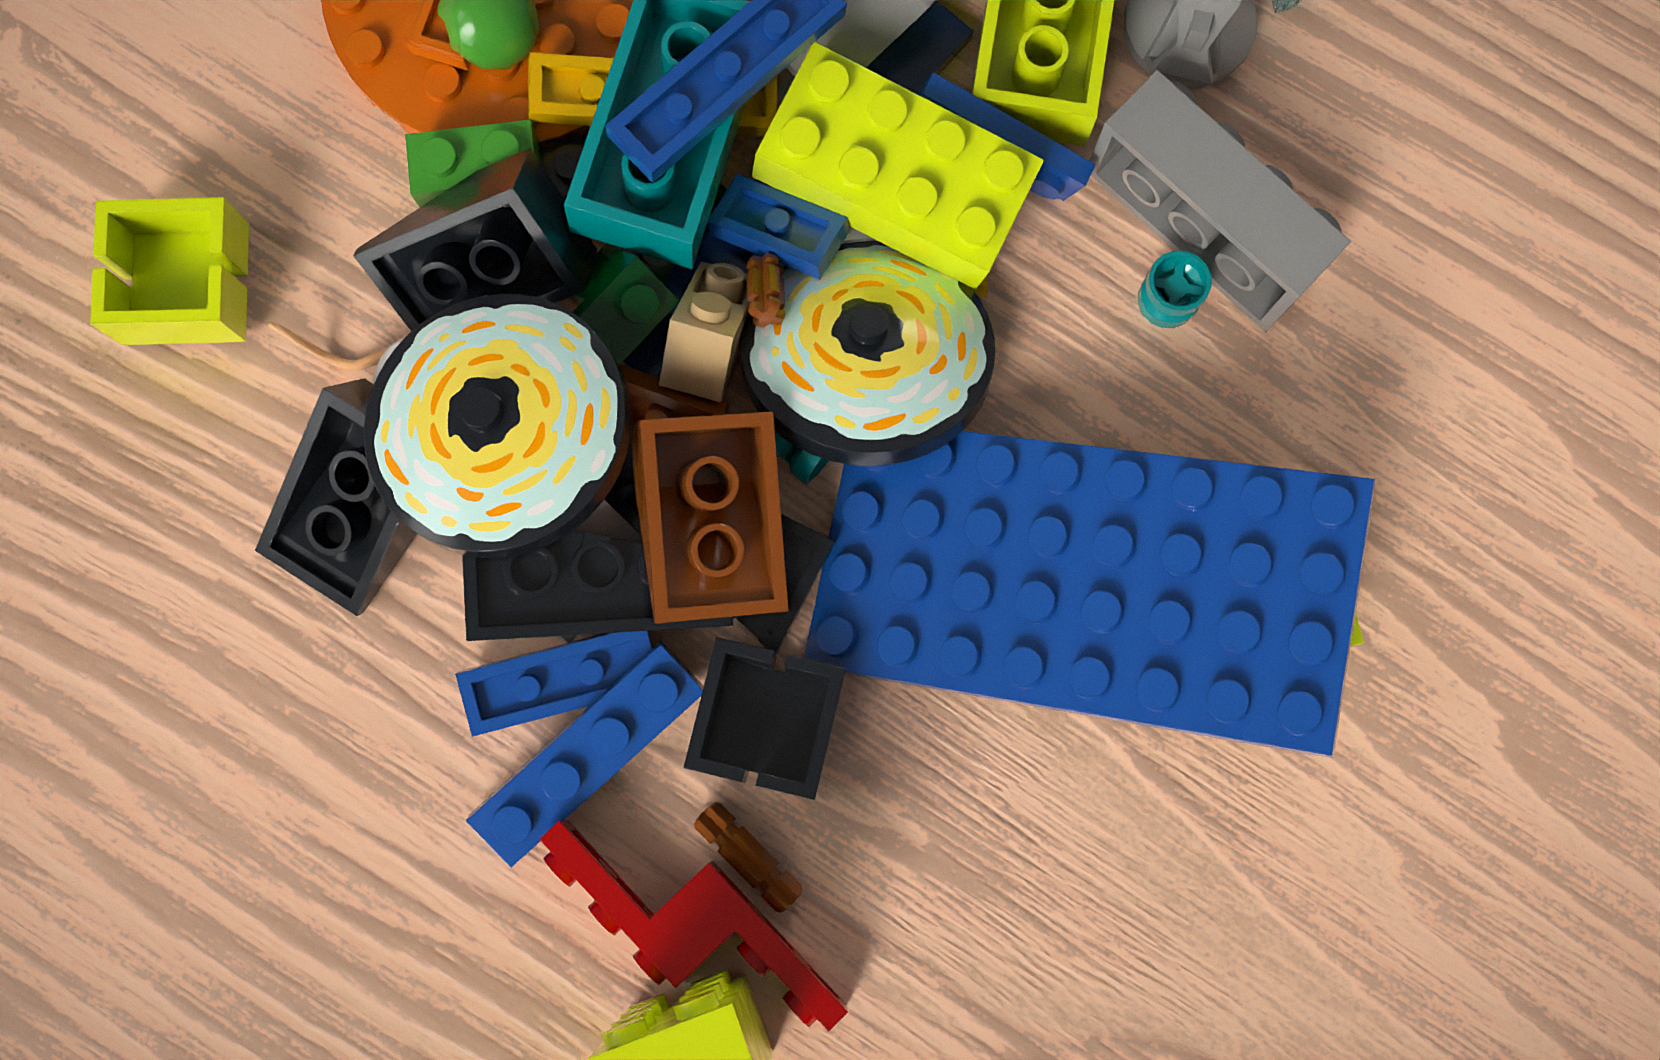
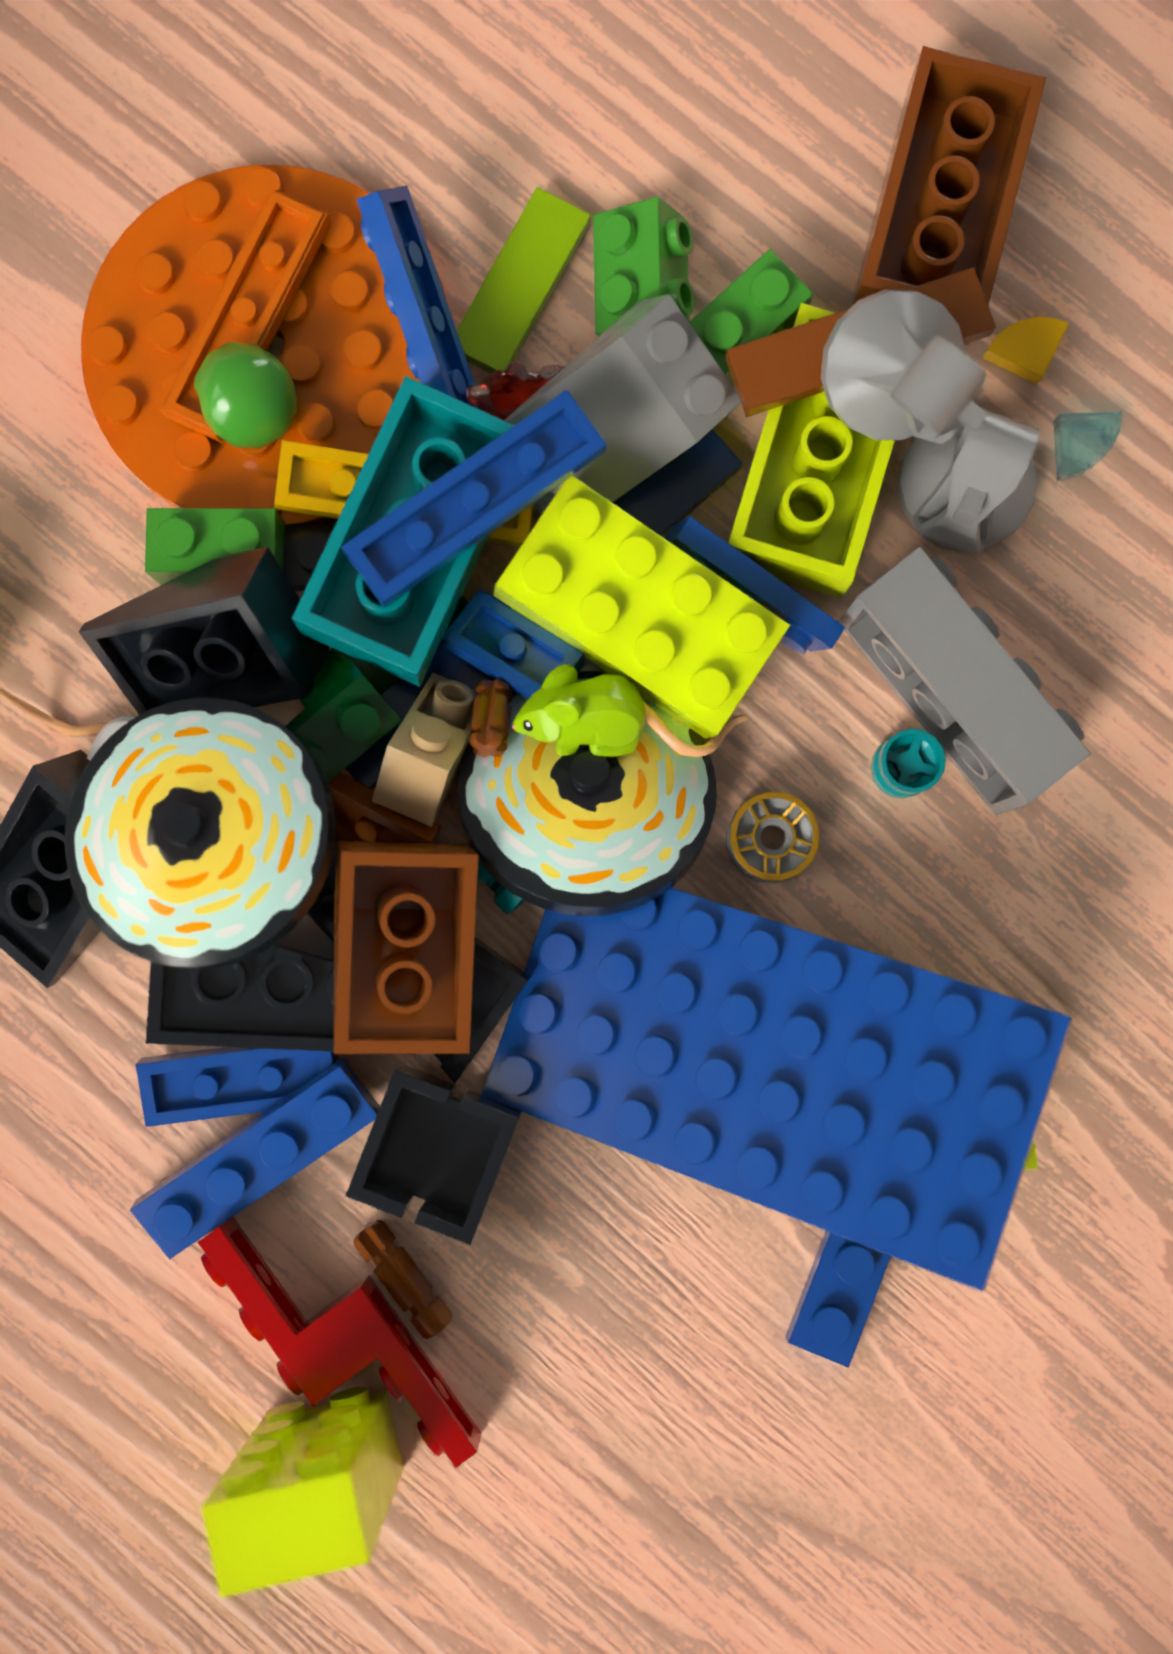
camera: 10 degrees right, 5 degrees up
(871, 267) = (599, 713): none -> lime animal
(1053, 352) = (796, 847): none -> wheel
(1187, 806) = (837, 1298): none -> blue plate

